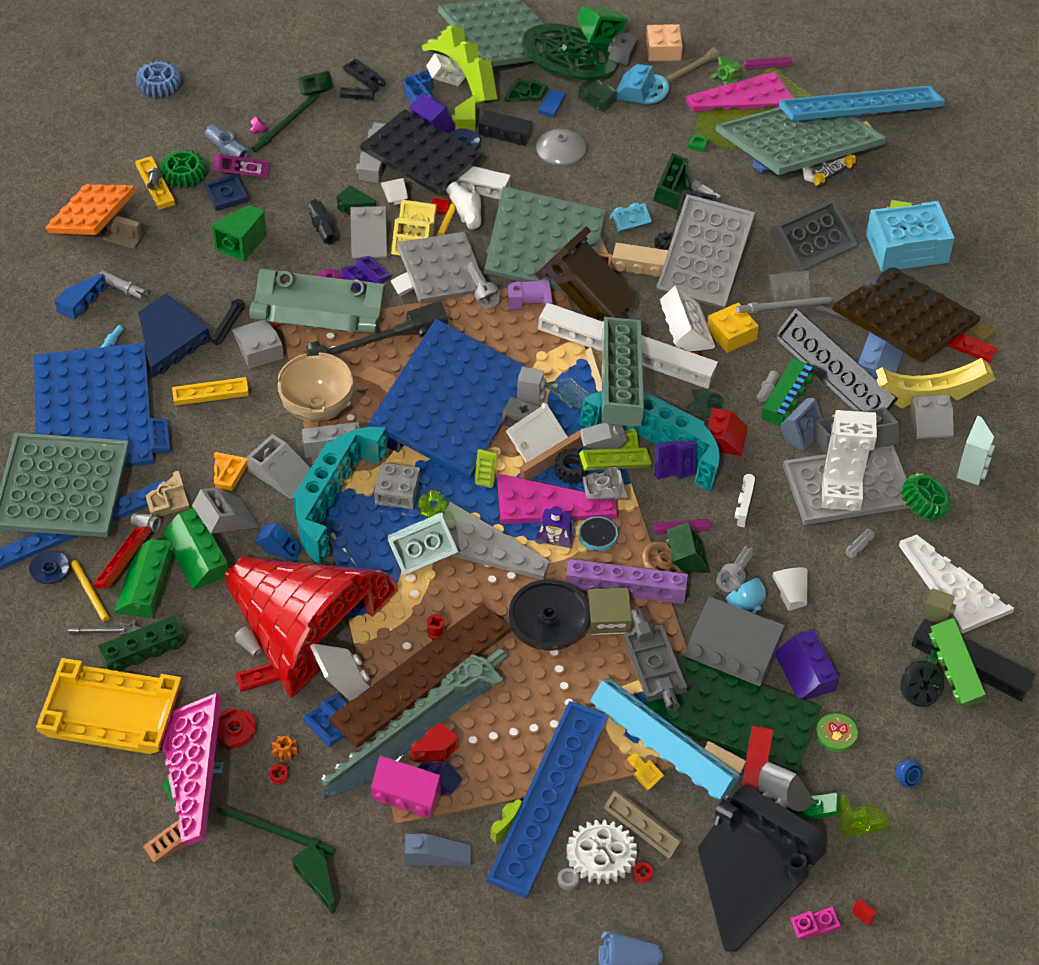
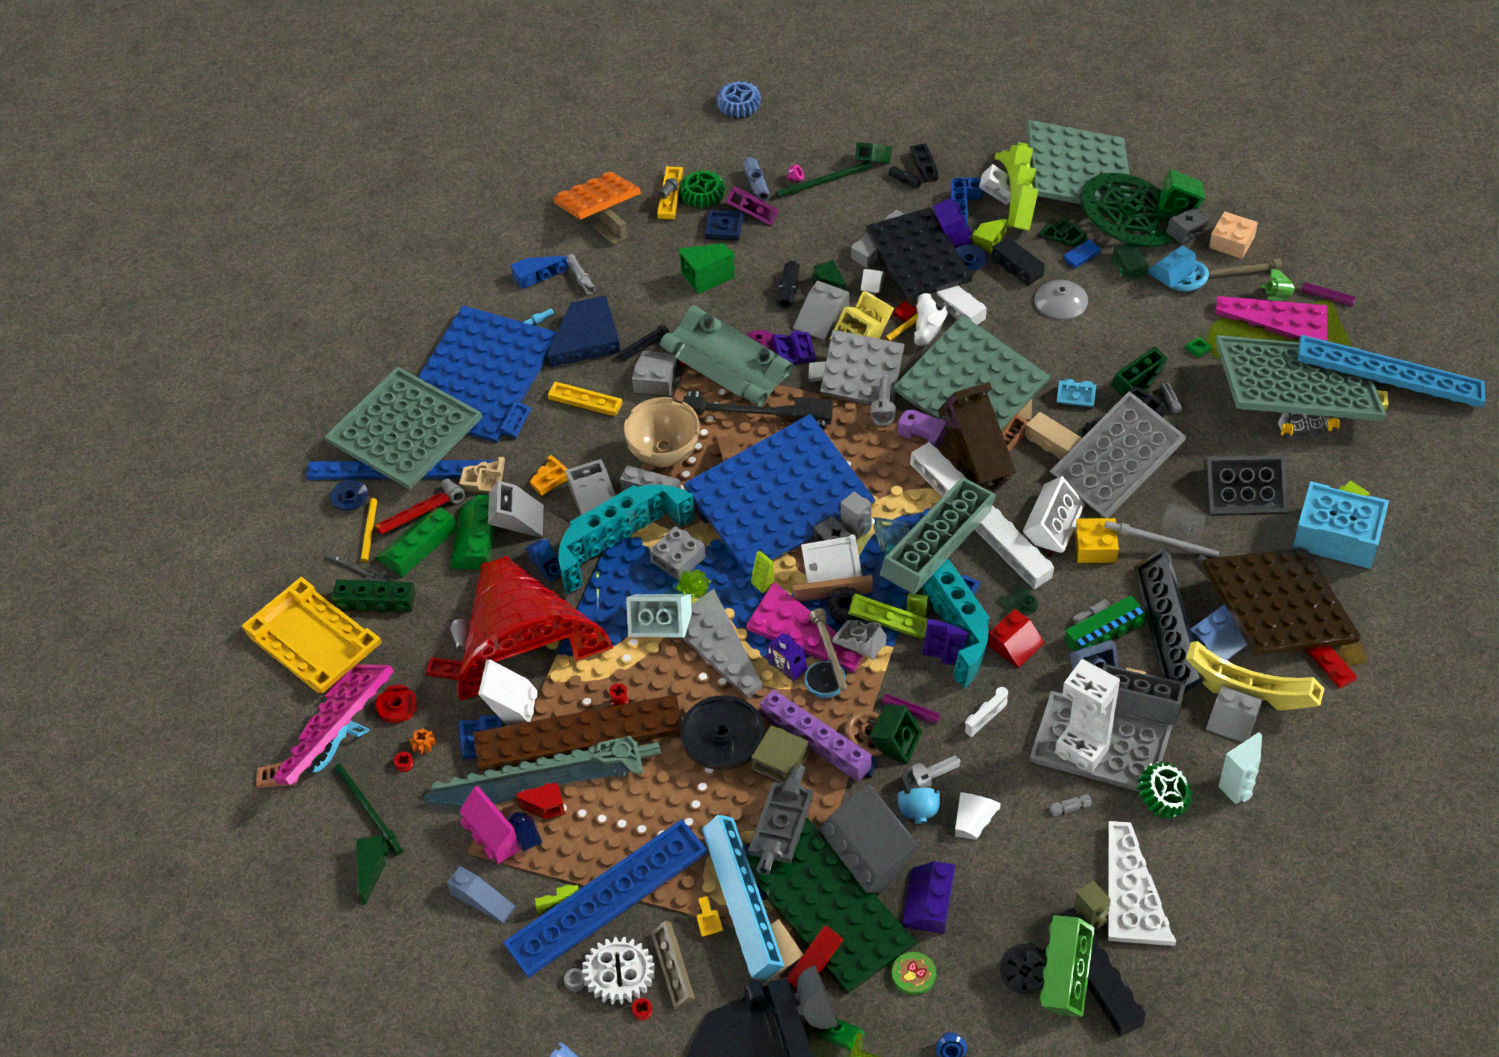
camera: 35 degrees right, 0 degrees up
(560, 485) = (818, 618): none -> dark tan piece
(603, 436) = (887, 591): light grey slope -> none

